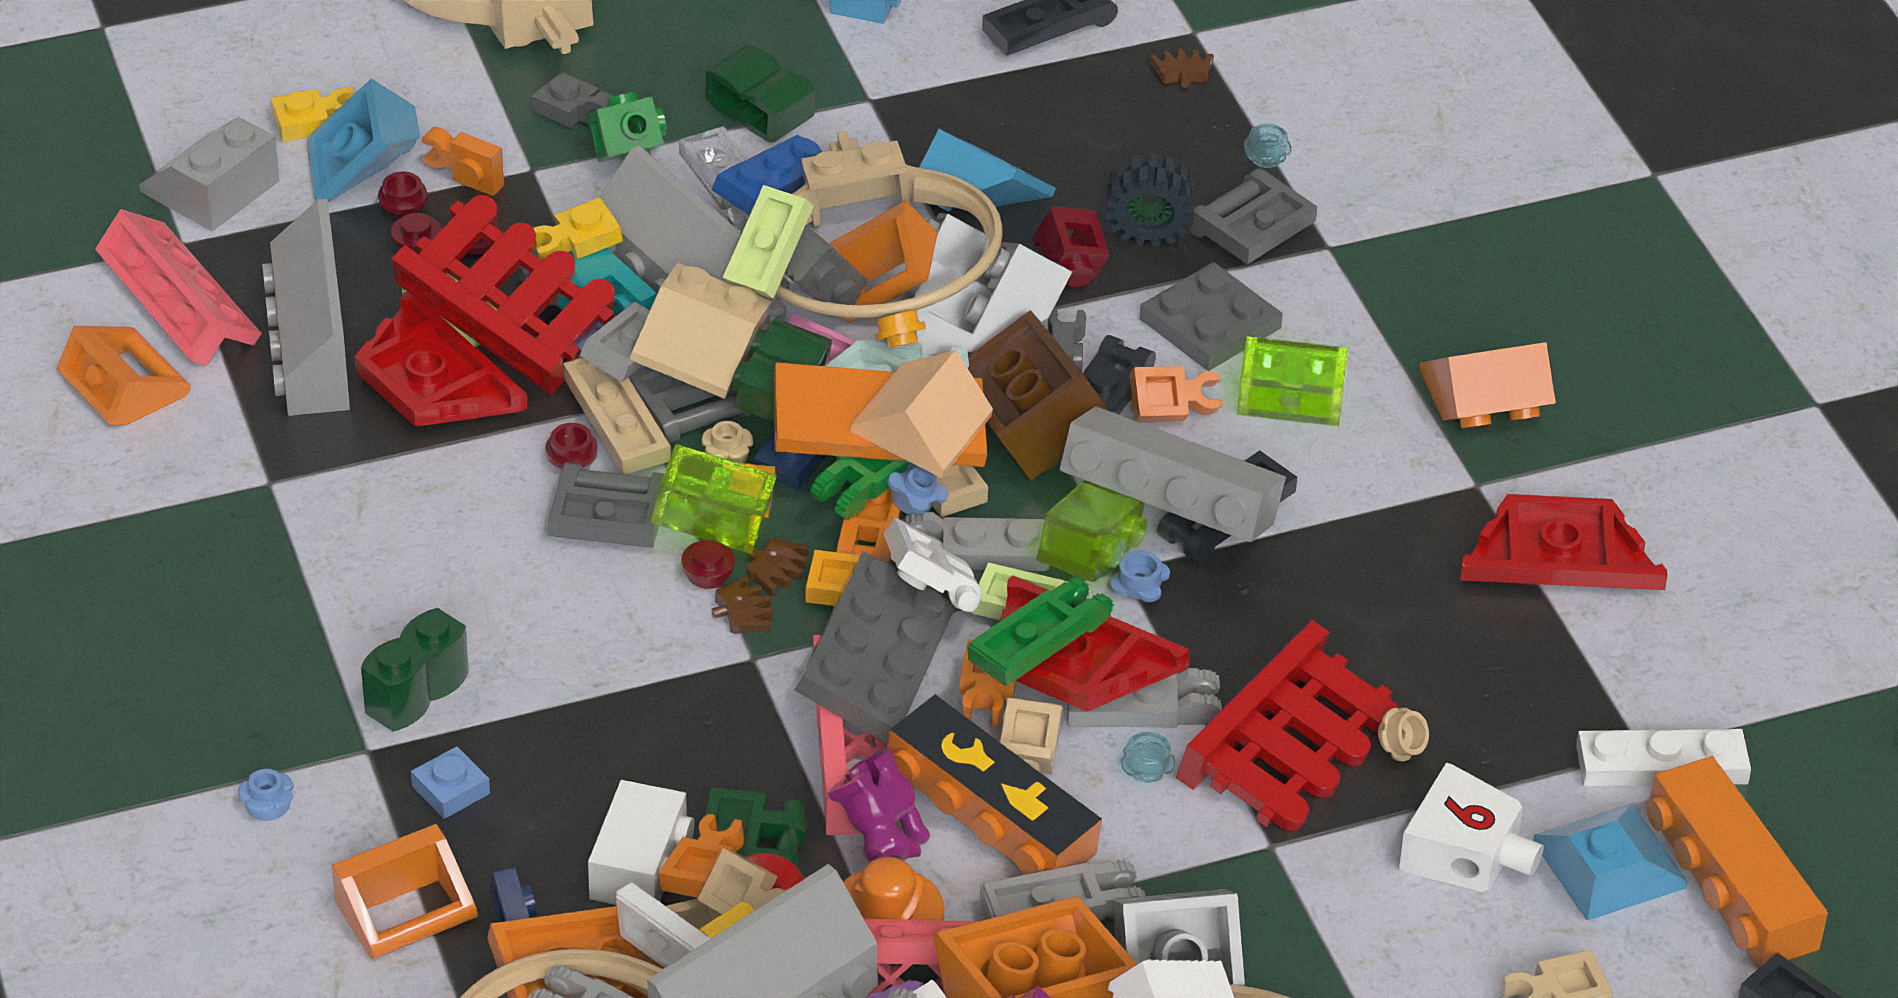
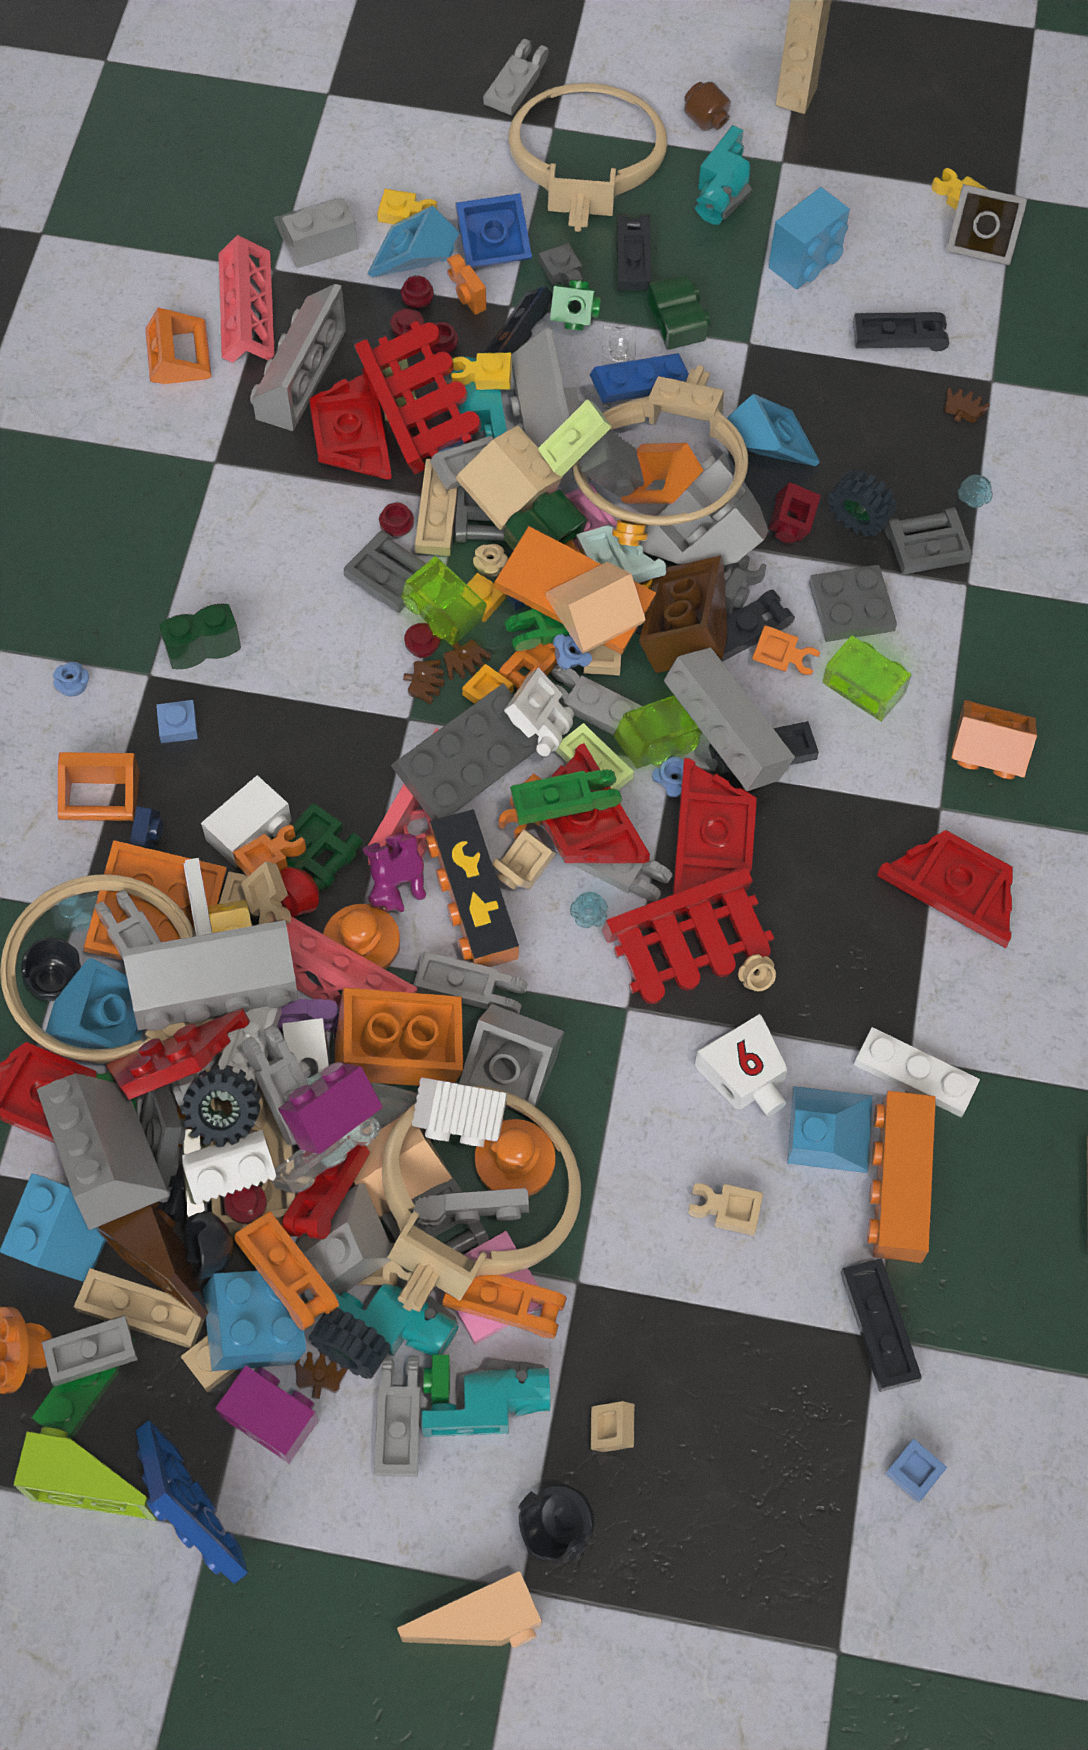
camera: 30 degrees right, 20 degrees up
(457, 87) = (493, 230): none -> blue slope
(568, 171) = (521, 321): none -> black plate
(653, 52) = (633, 252): none -> black plate
(1231, 605) = (712, 828): none -> red wing

